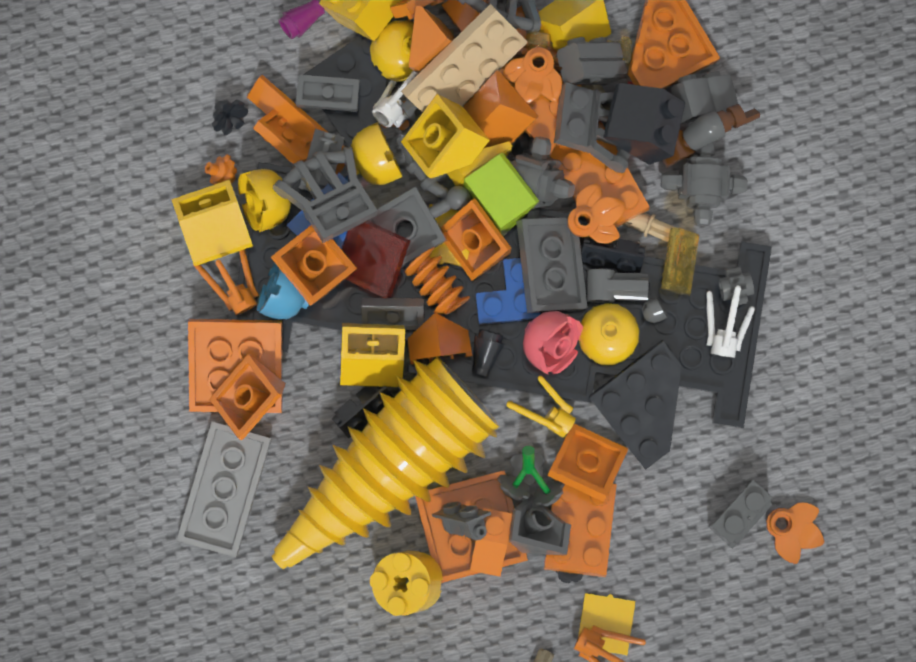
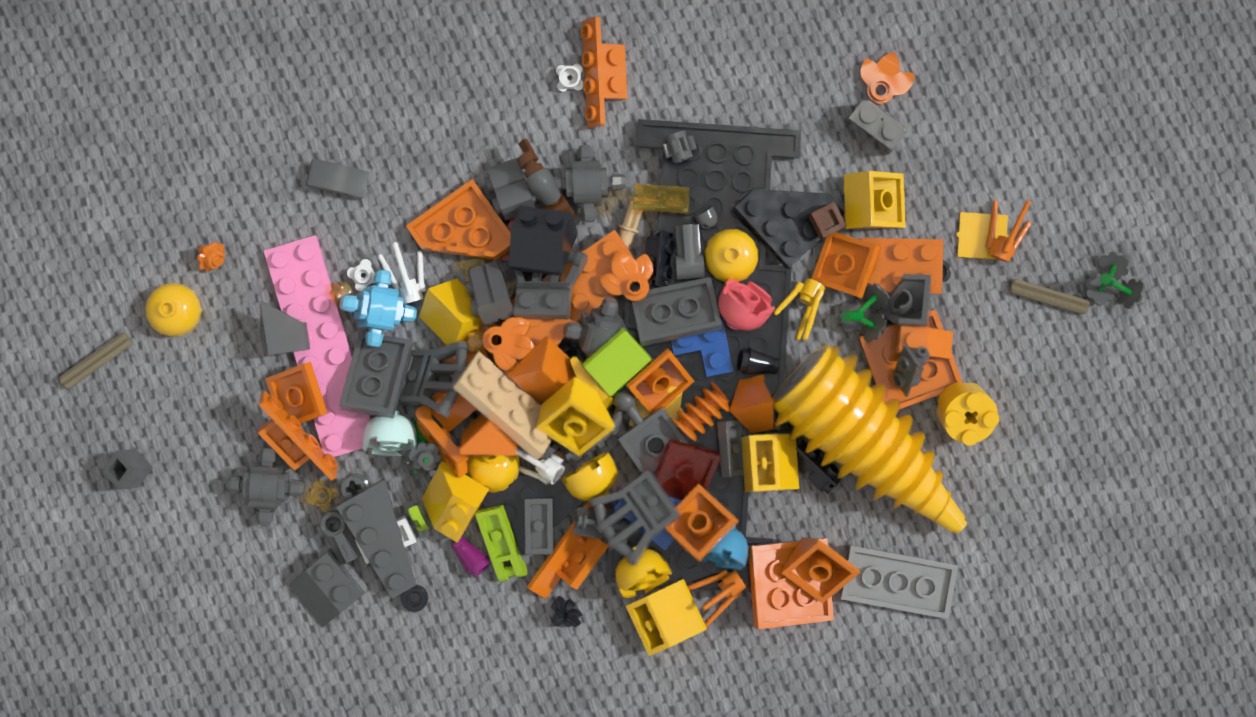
camera: 95 degrees left, 5 degrees up
(221, 170) = (616, 614): orange plant -> none
(313, 51) = (500, 542): none -> lime plate
(639, 444) = (827, 220): none -> reddish brown plate
(657, 503) = (874, 200): none -> yellow slope
(724, 342) = (728, 152): white plant -> none
(827, 214) = (603, 72): none -> orange bracket
(830, 170) = (564, 71): none -> white plate

